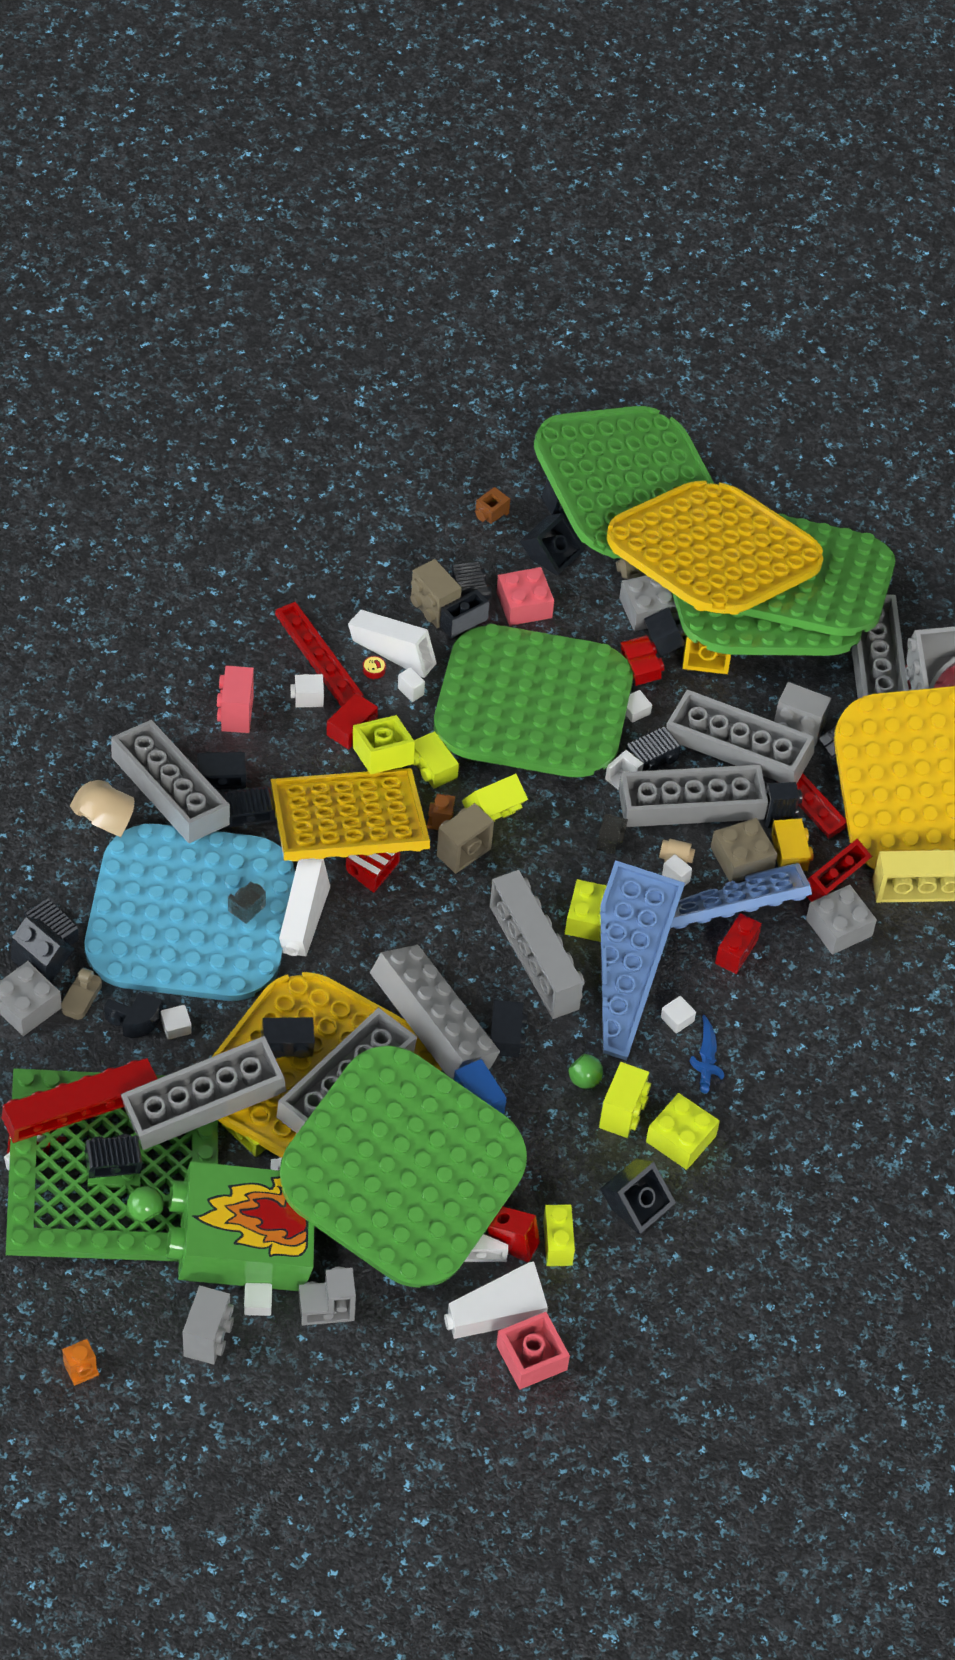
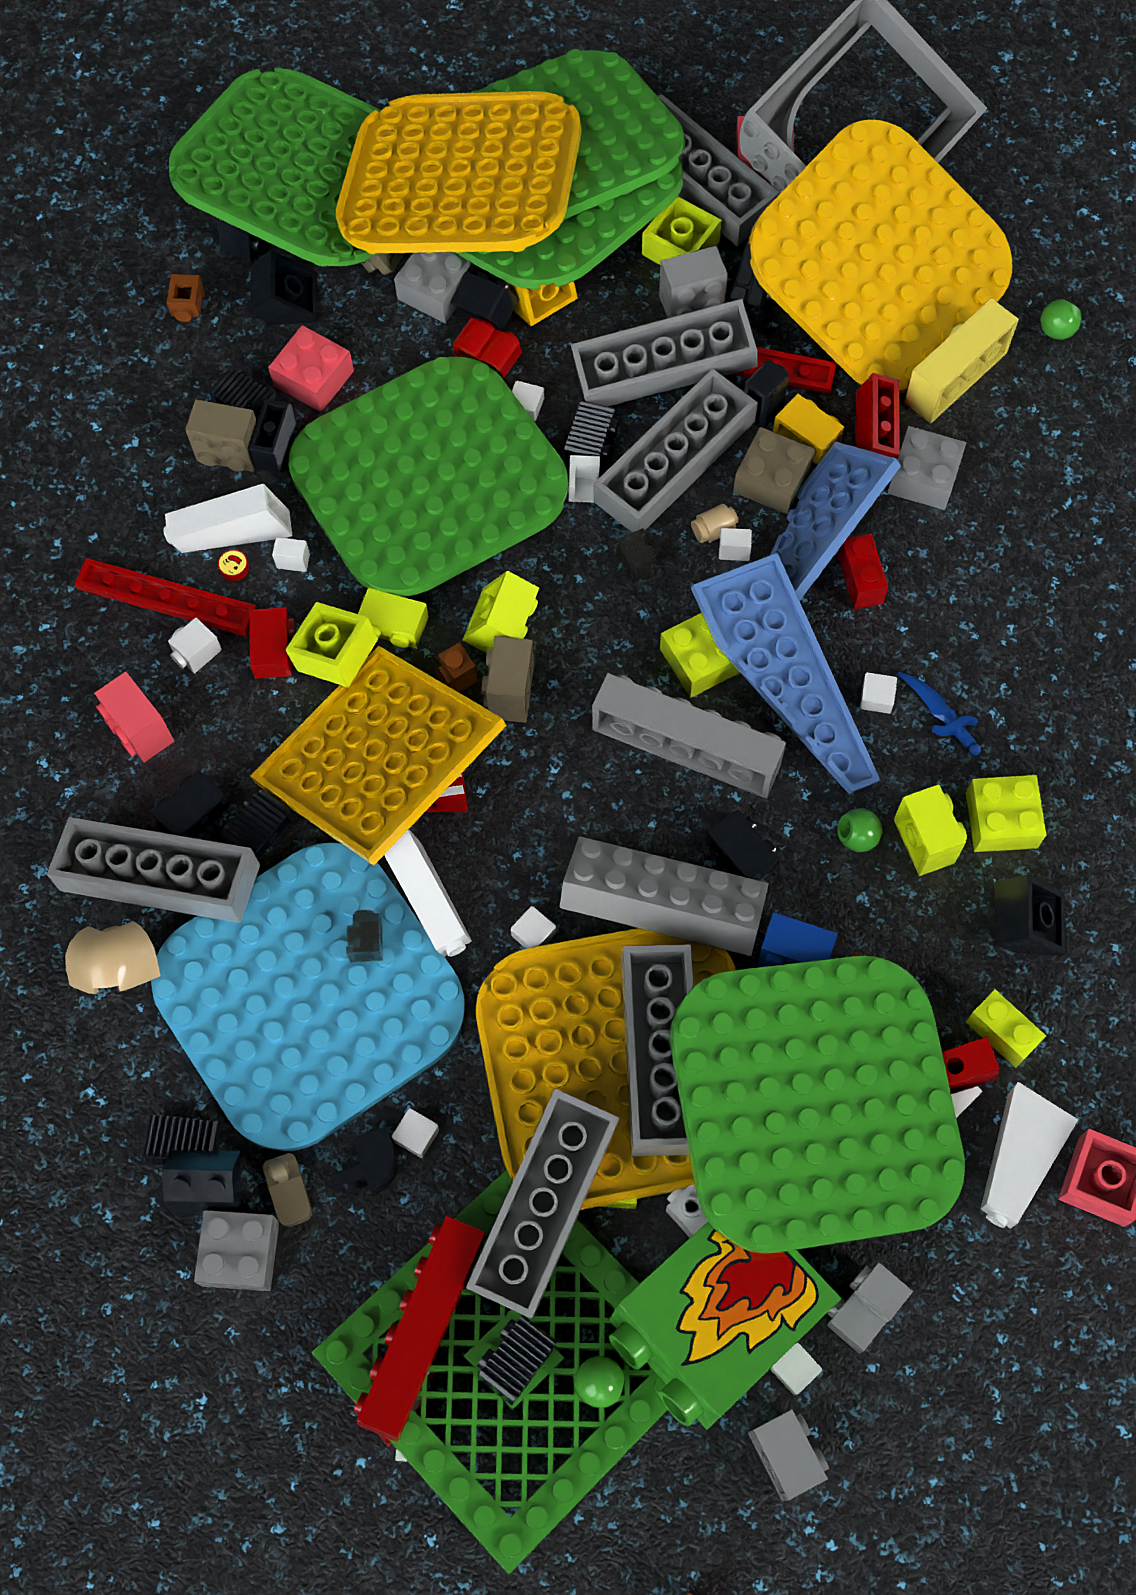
camera: 35 degrees left, 15 degrees up
(289, 1036) = (559, 1057): black brick -> none
(346, 974) = (533, 929): none -> white piece
(828, 677) = (680, 231): none -> neon yellow brick

